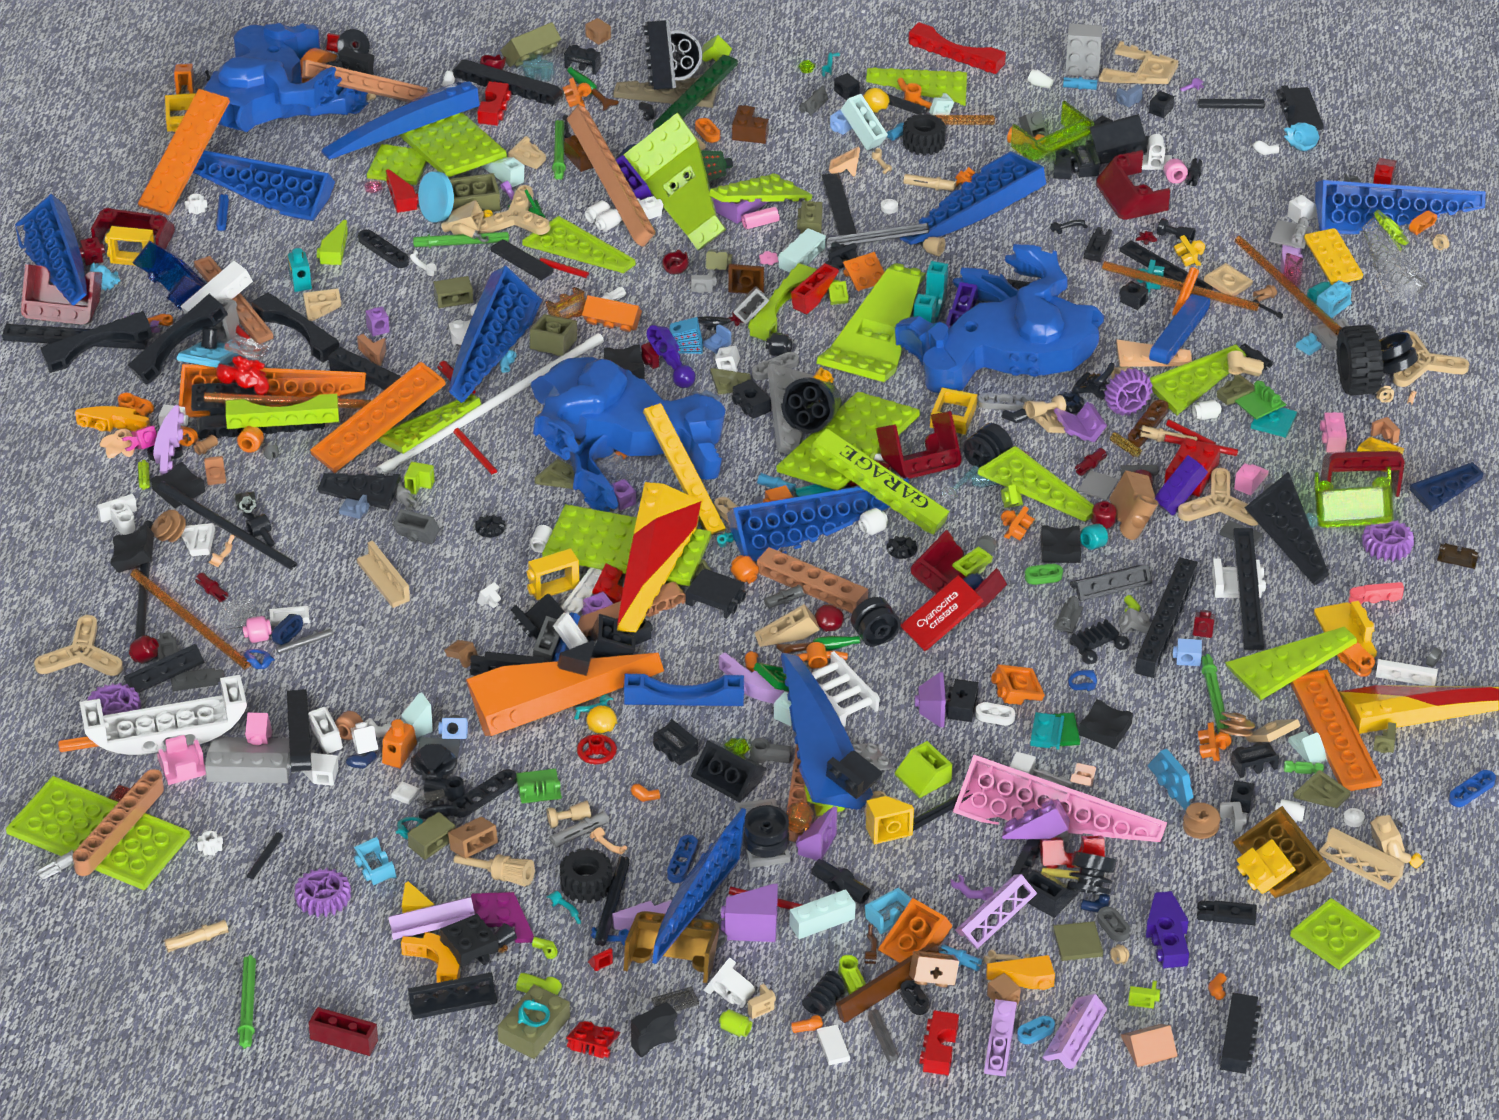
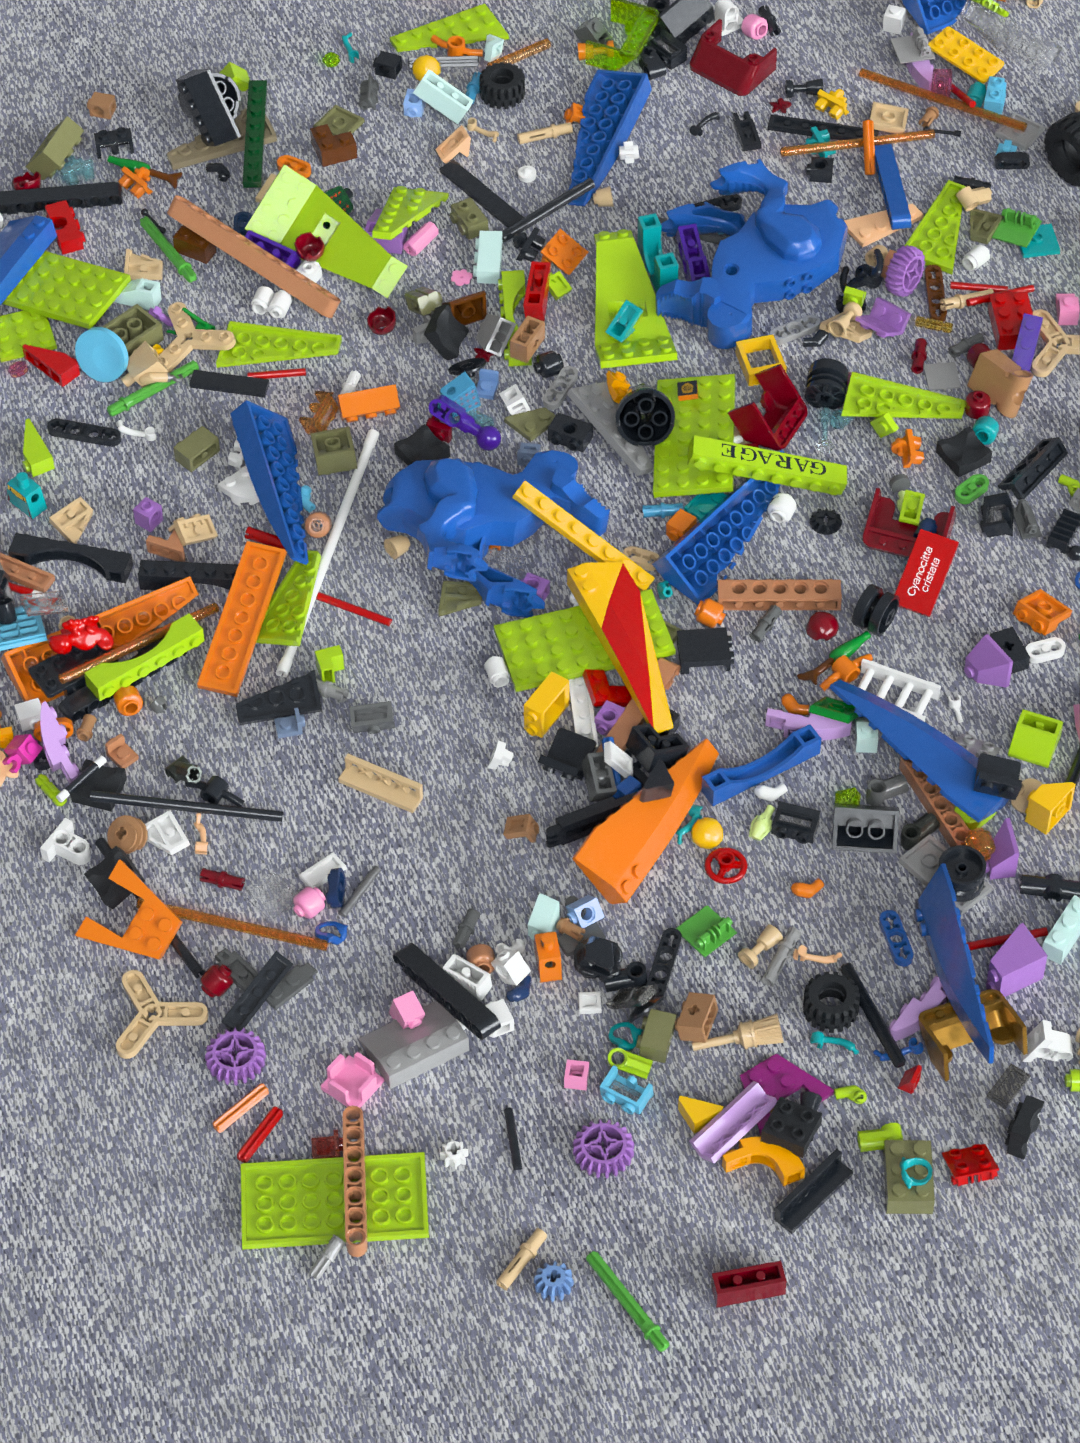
camera: 30 degrees left, 10 degrees up
(86, 765) = (259, 1134): none -> red axle
(128, 593) = (151, 927): none -> orange wing
(148, 728) = (307, 1054): white slope -> none
(165, 472) = (81, 778): none -> black bar
(204, 960) = (544, 1282): none -> medium blue gear
(347, 833) = (576, 1075): none -> bright pink plate
(359, 700) = (466, 928): none -> dark grey axle
(394, 844) = (632, 1063): none -> lime piece
(401, 345) = (194, 529): none -> tan bracket
(431, 731) = (569, 928): none -> medium nougat pin
(494, 530) = (429, 687): black gear -> none
(496, 380) = (311, 527): none -> nougat head
(646, 733) = (762, 824): none -> yellowish green piece
(660, 185) = (309, 247): none -> dark red hair
(677, 715) = (769, 793): none -> white arm
(690, 360) = (481, 419): none -> clear light blue cone
(714, 288) = (445, 332): none -> black brick
(760, 790) = (915, 832): none -> pearl dark grey piece
(768, 314) = (527, 339): none -> medium nougat brick
(774, 111) = (340, 120): none -> olive tile
(791, 627) = (797, 655): tan slope -> none
(858, 337) = (623, 323): none -> teal slope
(868, 405) = (687, 390): none -> tile
(885, 720) = (955, 704): none -> white hand
(984, 221) = (628, 152): none -> white gear
(1046, 600) = (997, 515): none -> black window
(1069, 393) = (854, 295): none -> lime bracket
(1305, 286) = (961, 95): none -> red bar
(1306, 352) = (1012, 160): none -> black beam

